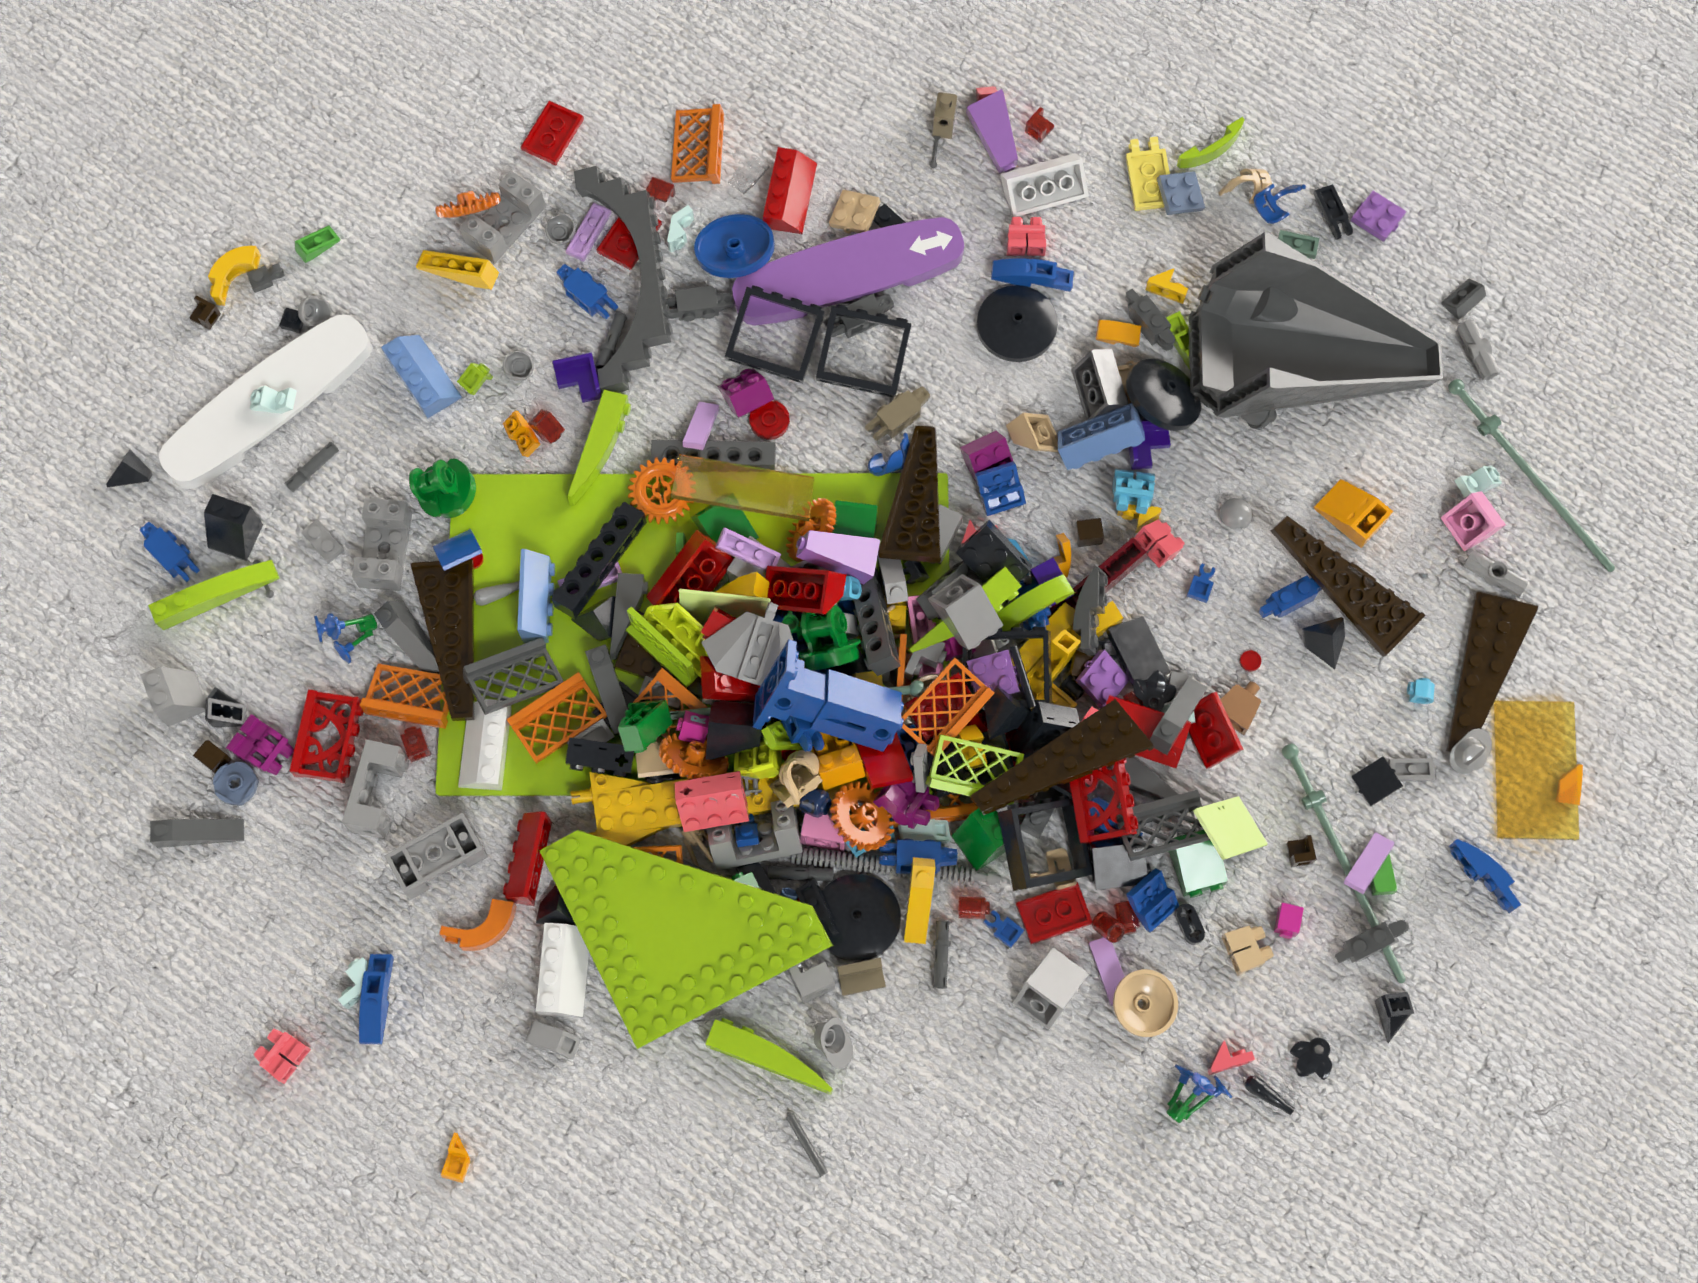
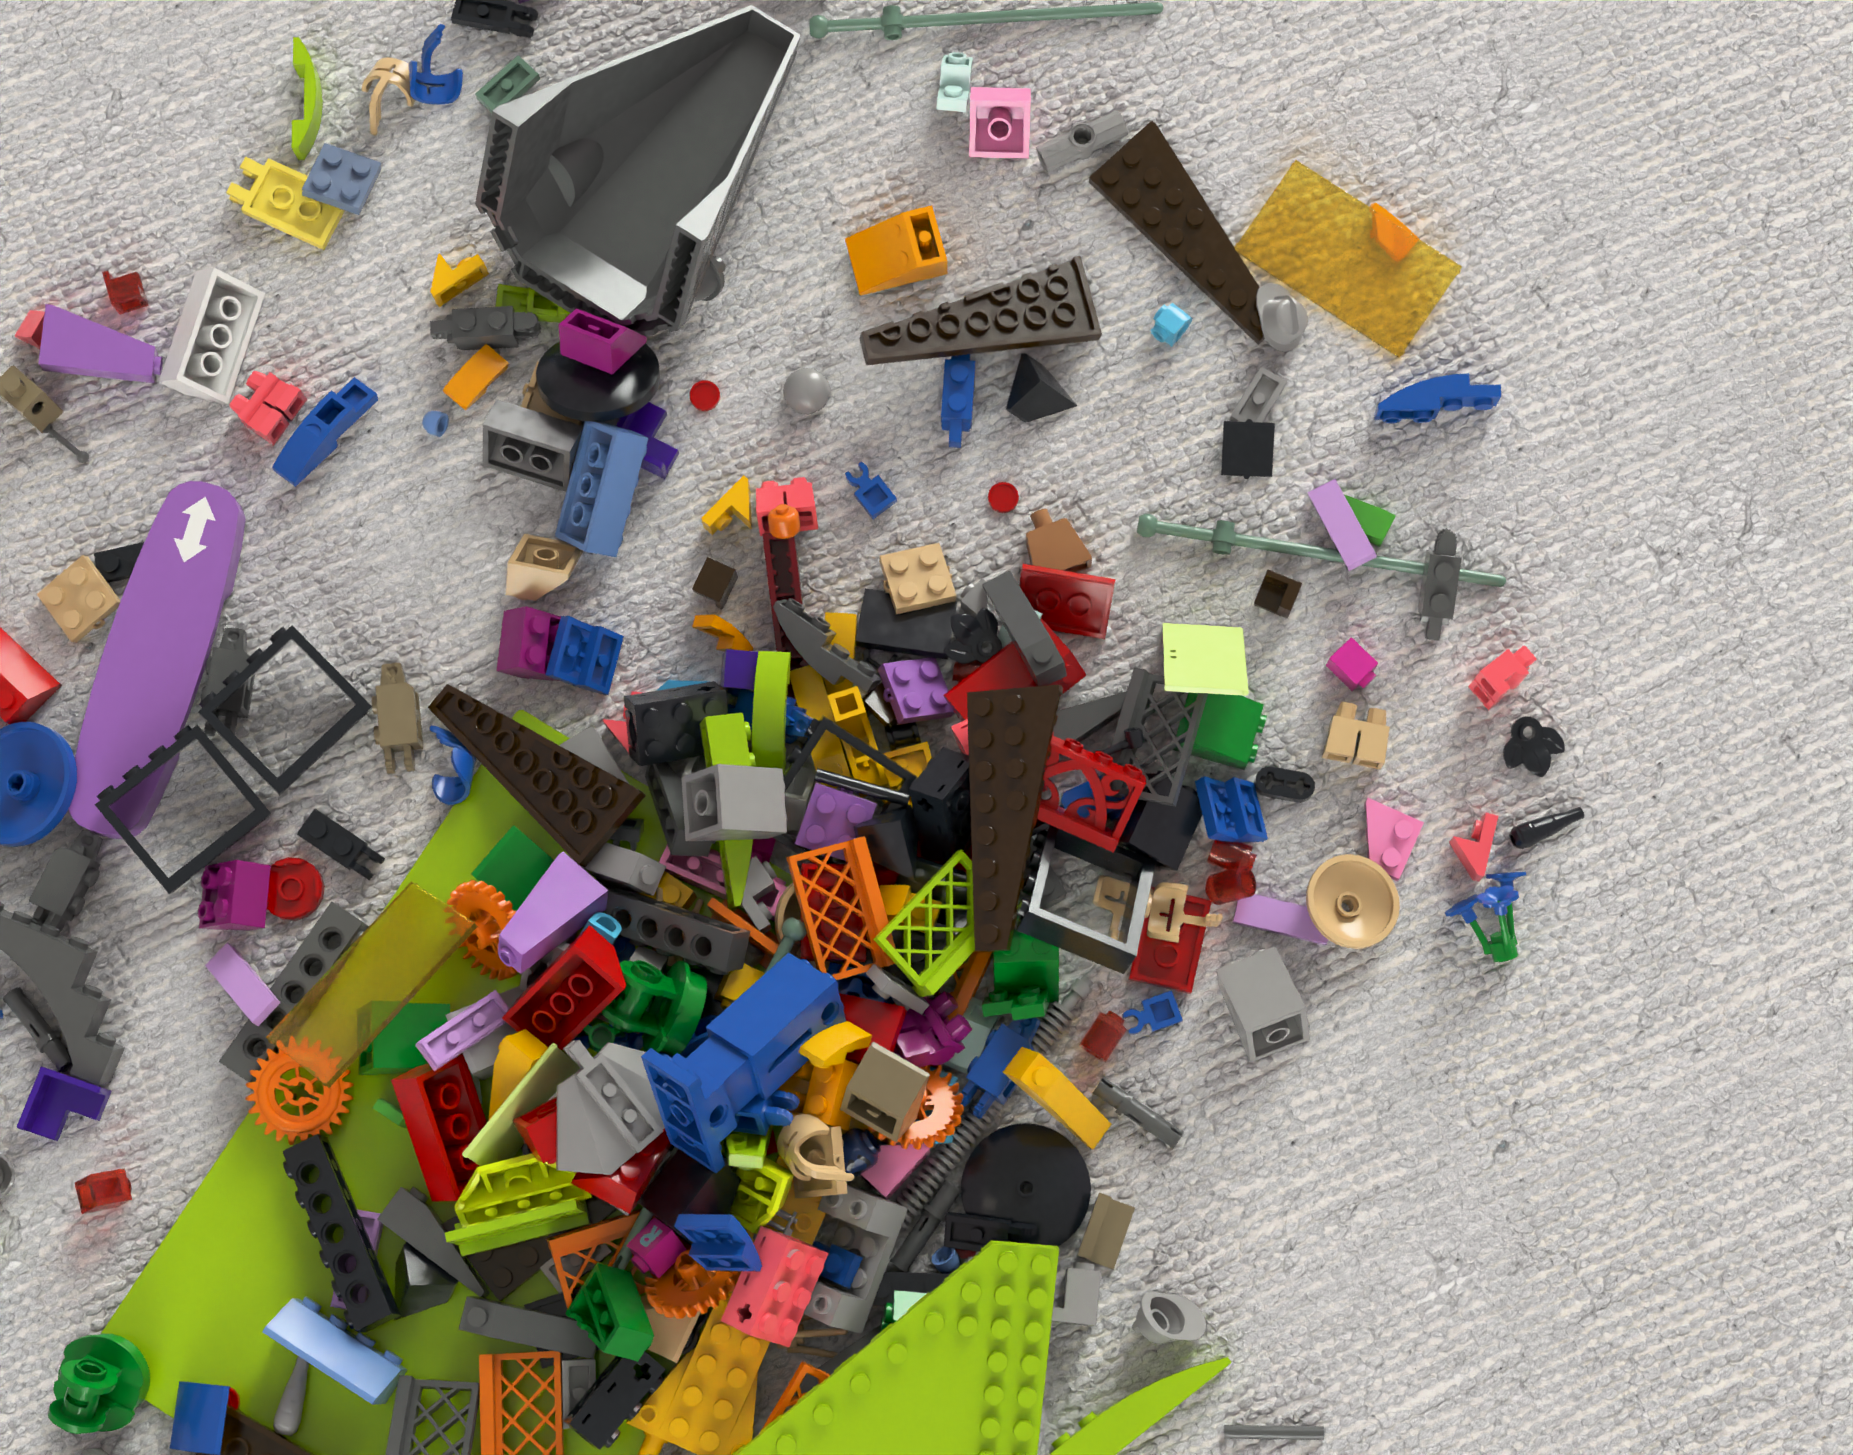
camera: 55 degrees left, 5 degrees up
(519, 430) = (82, 1230): light orange slope -> none
(600, 442) = (174, 1130): lime slope -> none
(716, 752) = (719, 1242): none -> blue slope
(809, 427) = (337, 842): none -> black hinge
(857, 793) = (885, 1092): none -> dark tan slope
(865, 747) = (833, 1043): none -> yellow slope
(963, 850) = (1027, 1004): none -> green plate
(1017, 323) = (377, 518): black dish -> none
(1072, 893) = (1161, 902): none -> tan helmet
(1077, 329) = (435, 423): none -> medium blue hinge
(1133, 491) = (698, 495): medium azure hips -> none
(1148, 543) = (784, 521): none -> orange piece
(1153, 813) = (1133, 739): none -> black hand
(1168, 641) = (917, 578): none -> tan plate
(1181, 378) = (597, 341): none -> magenta slope
(1194, 460) = (704, 395): none -> red piece
(1200, 1005) = (1390, 836): none -> bright pink wing
(1342, 1009) = (1501, 675): none -> coral hips
(1393, 1012) = (1533, 616): black slope -> none

